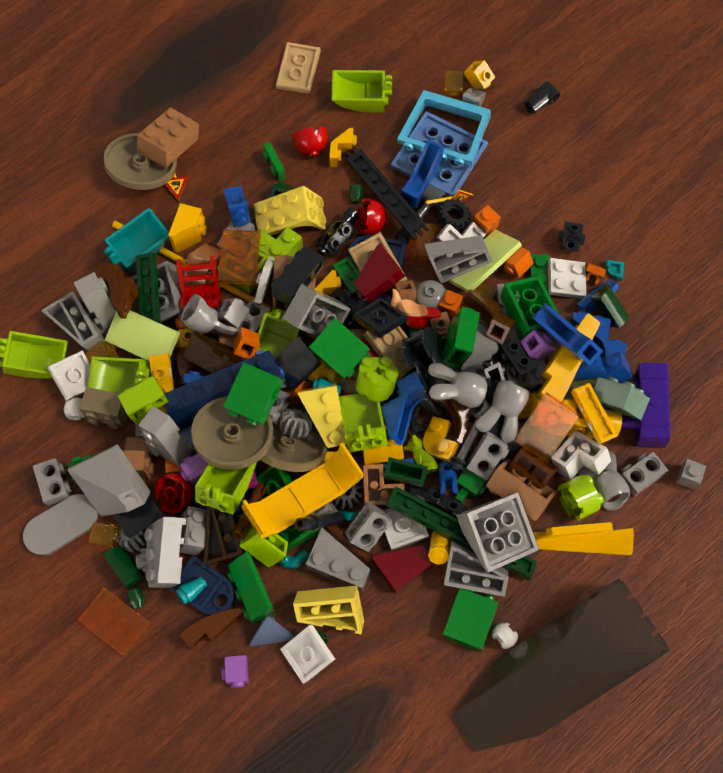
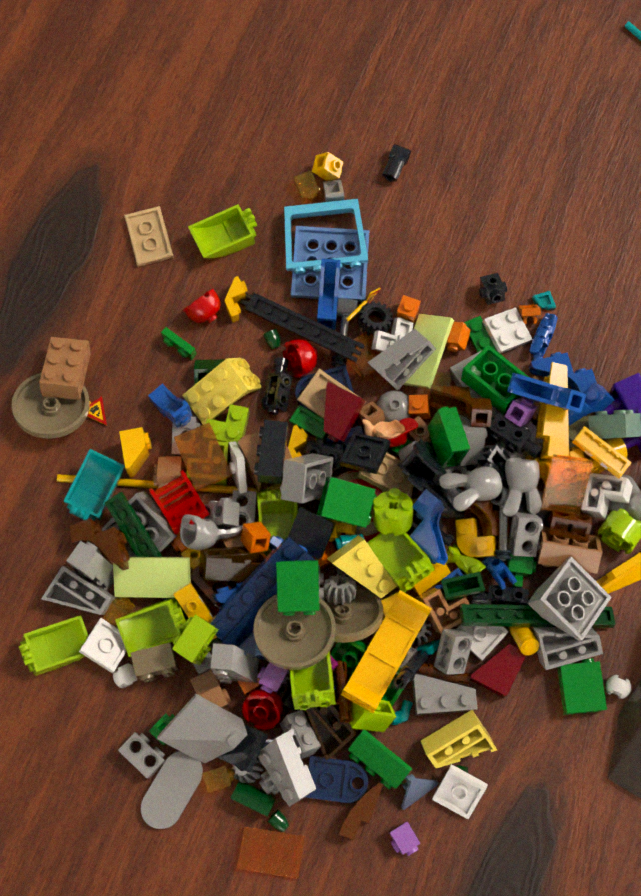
camera: 30 degrees left, 5 degrees up
(189, 590) = (326, 791): teal cone -> none
(610, 306) = (560, 340): dark green brick -> none

